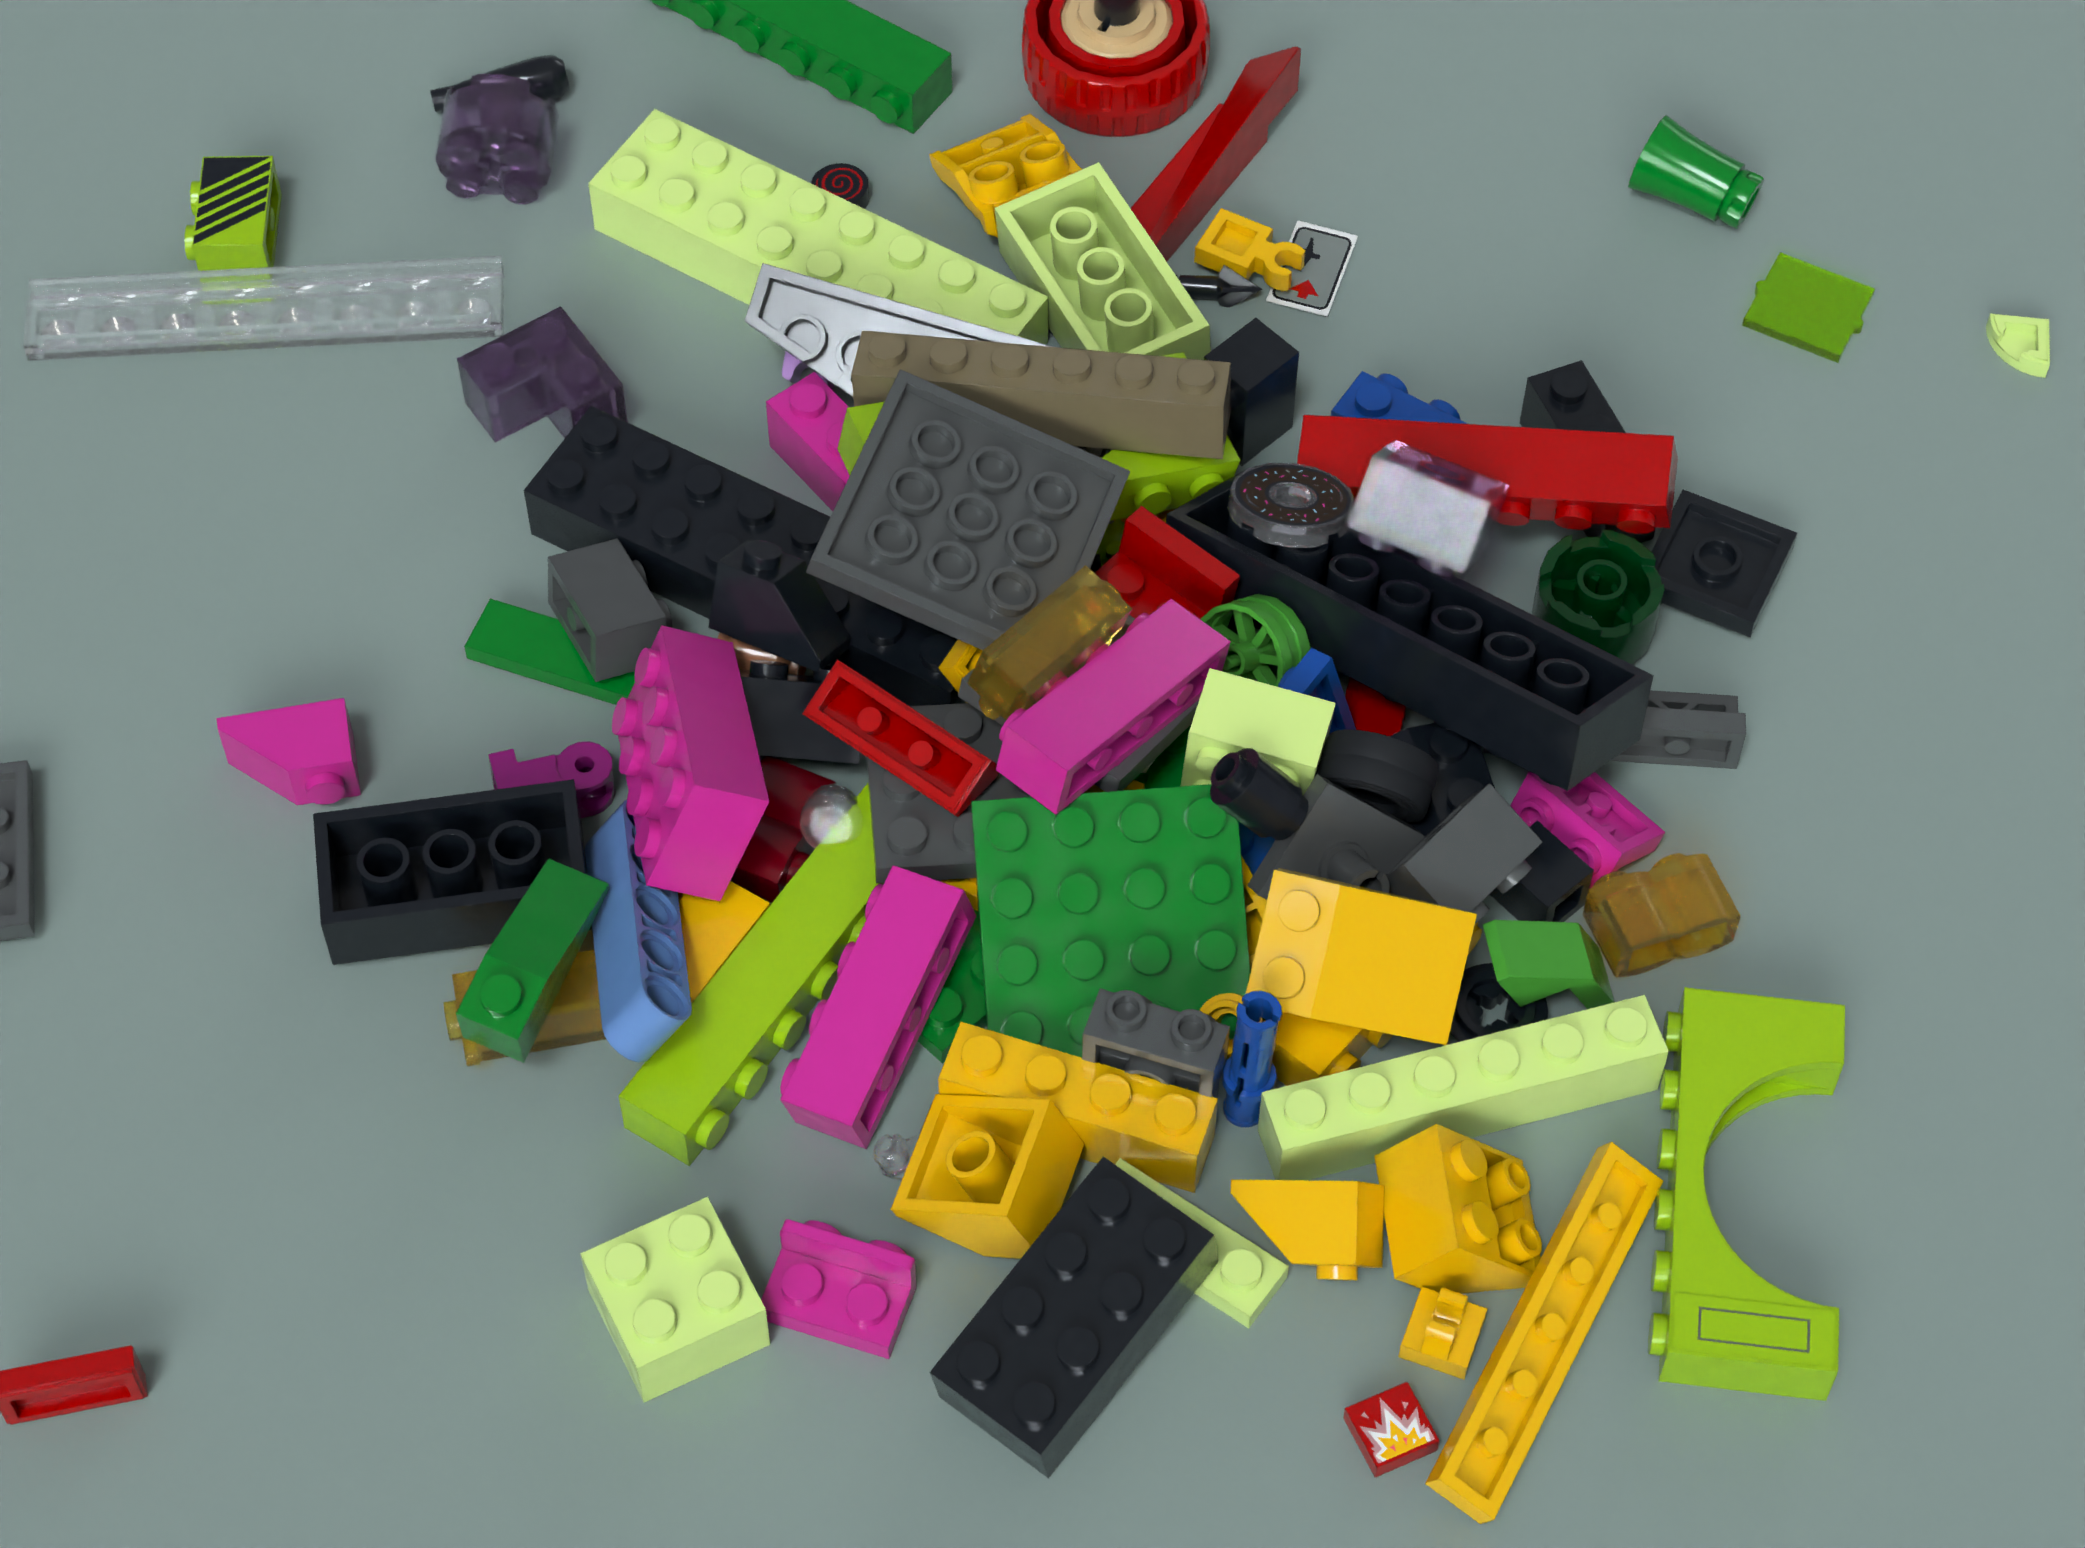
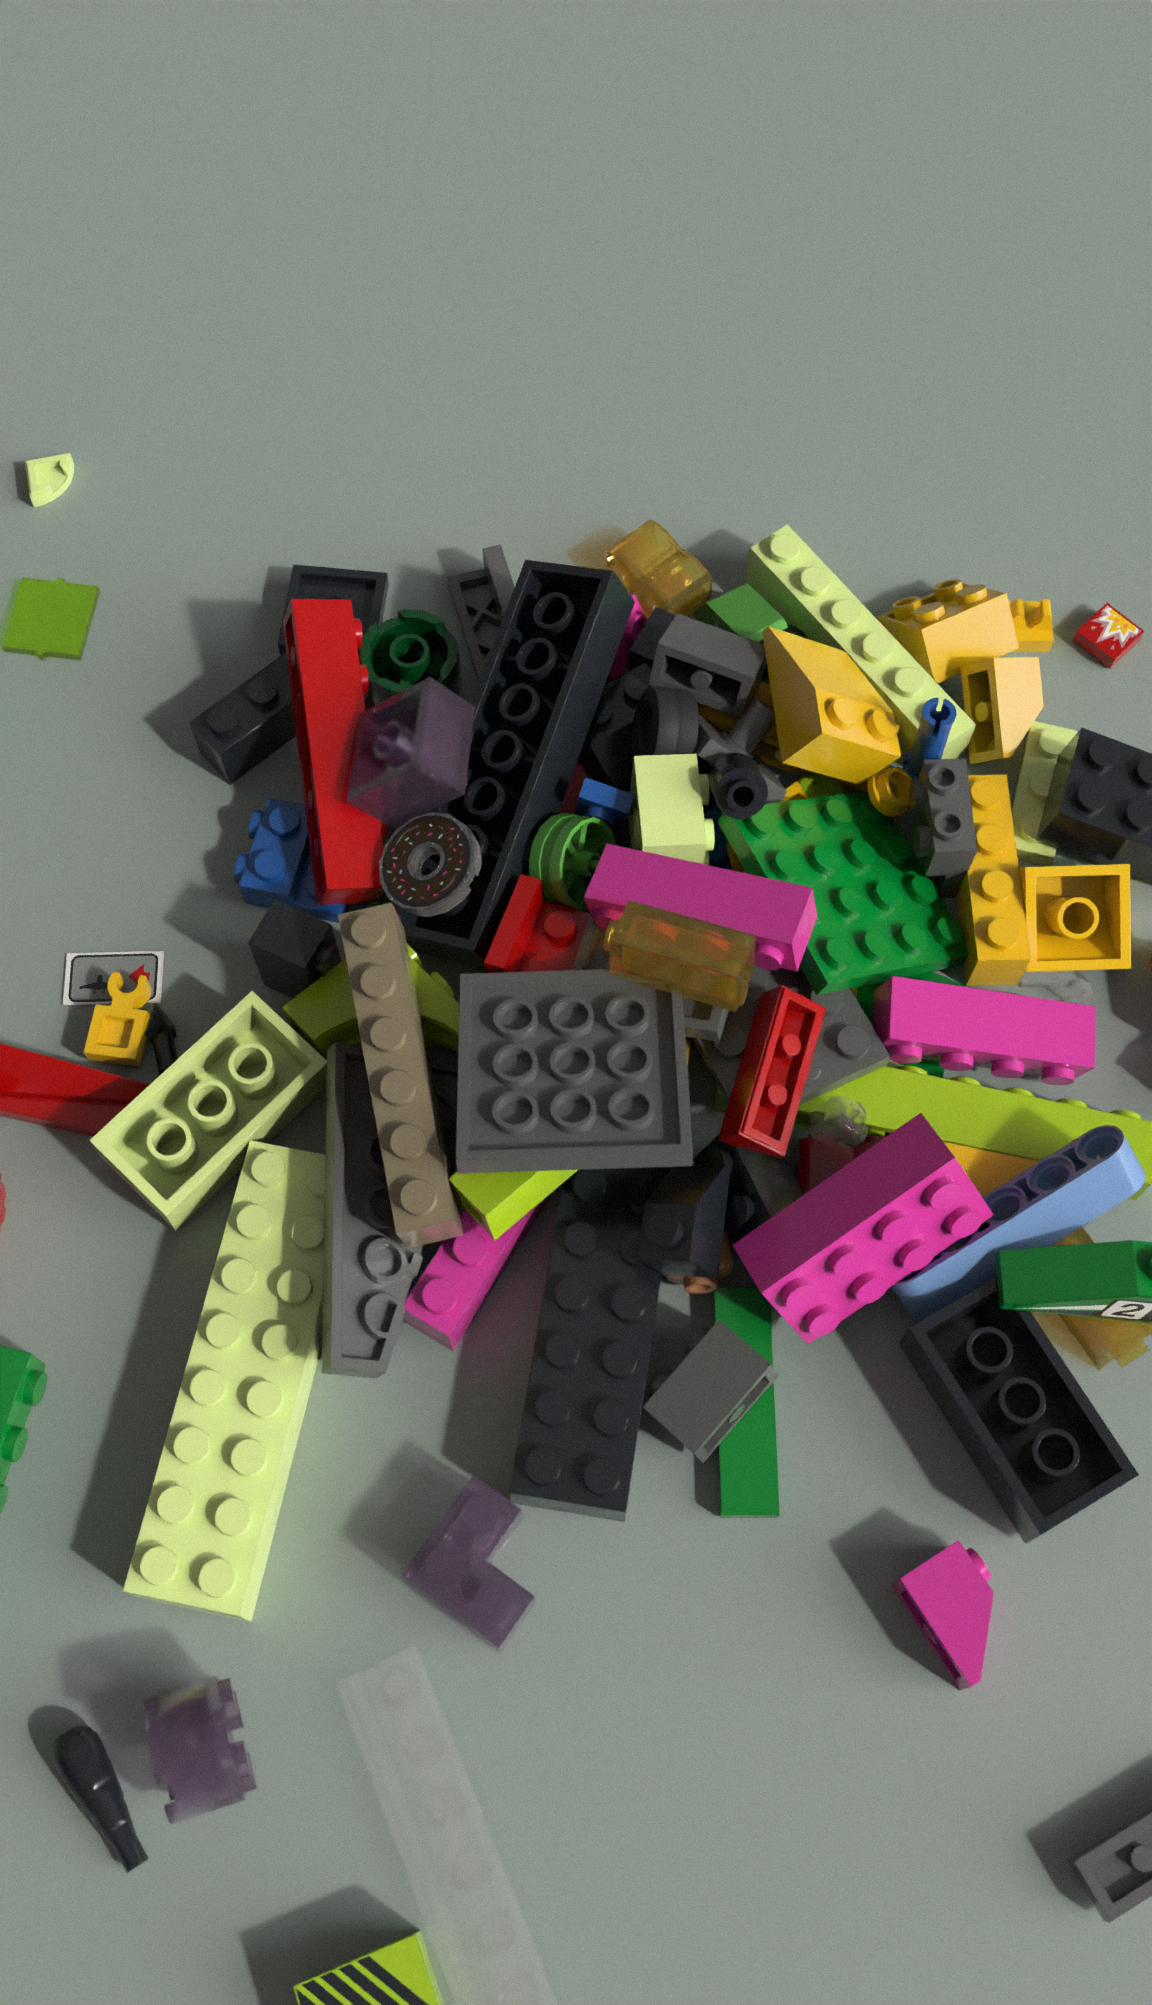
camera: 110 degrees left, 10 degrees up
(583, 761) = (889, 1372): magenta leg -> none
(844, 181) = (141, 1400): black tile -> none
(1003, 166) = (90, 1242): yellow slope -> none
(1544, 1334) = (1004, 563): yellow plate -> none
(1717, 1314) = (943, 481): lime arch -> none

